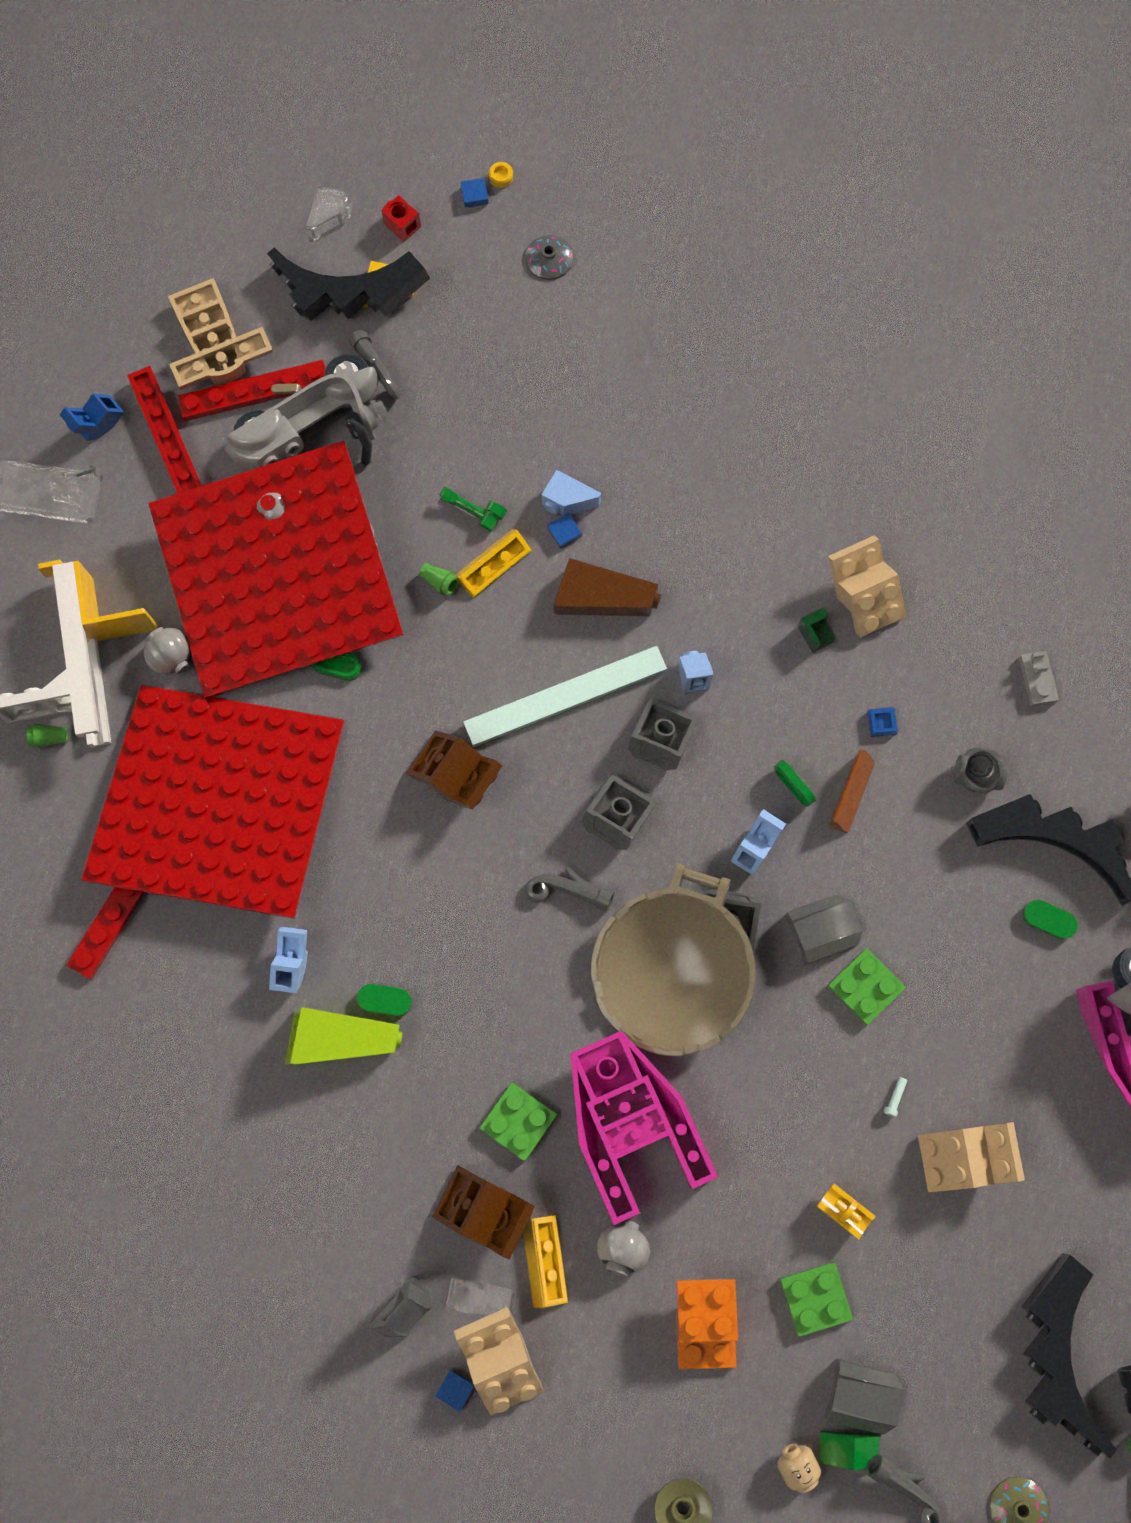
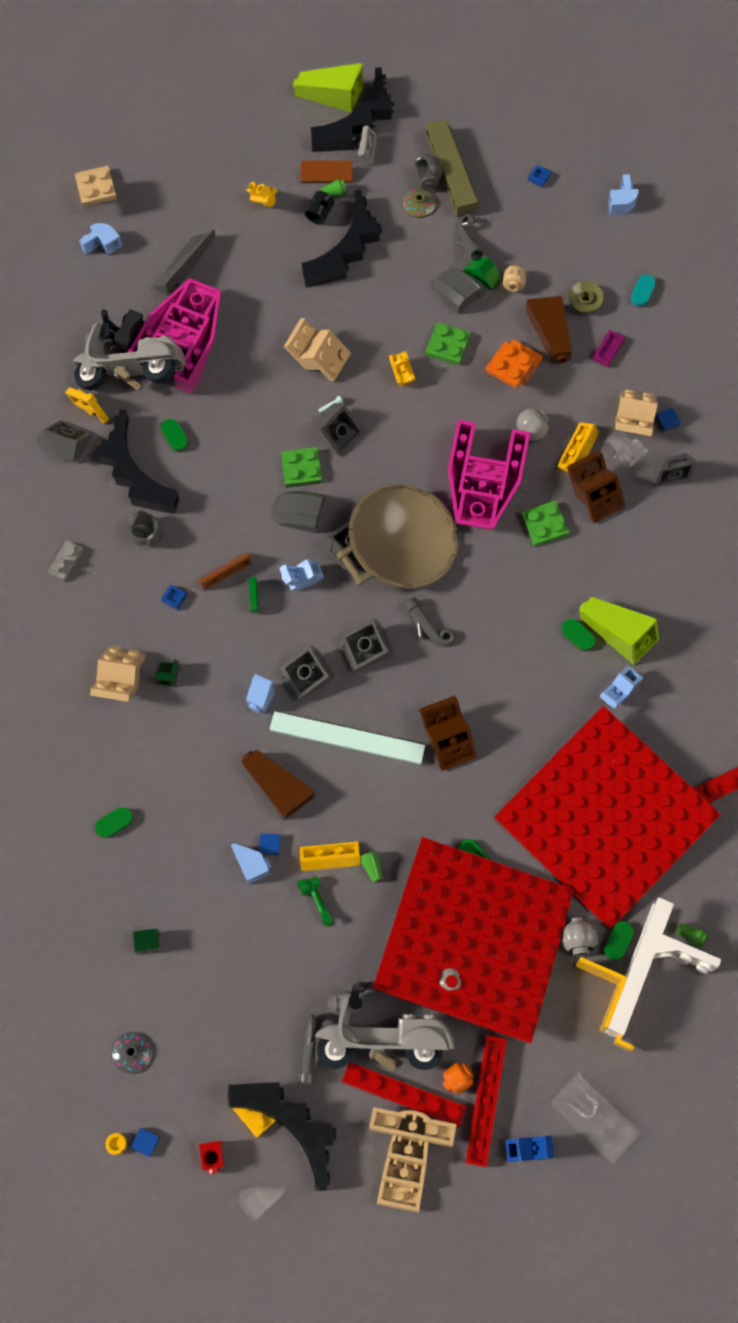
camera: 145 degrees left, 5 degrees down
(124, 678) = (618, 941): none -> green tile
(207, 435) = (458, 1078): none -> orange head
(601, 1449) = (608, 348): none -> magenta tile
(615, 353) = (146, 940): none -> dark green panel
(702, 1428) = (551, 326): none -> reddish brown slope
(743, 443) = (113, 822): none -> green tile
(860, 1067) = (339, 428): none -> dark grey slope

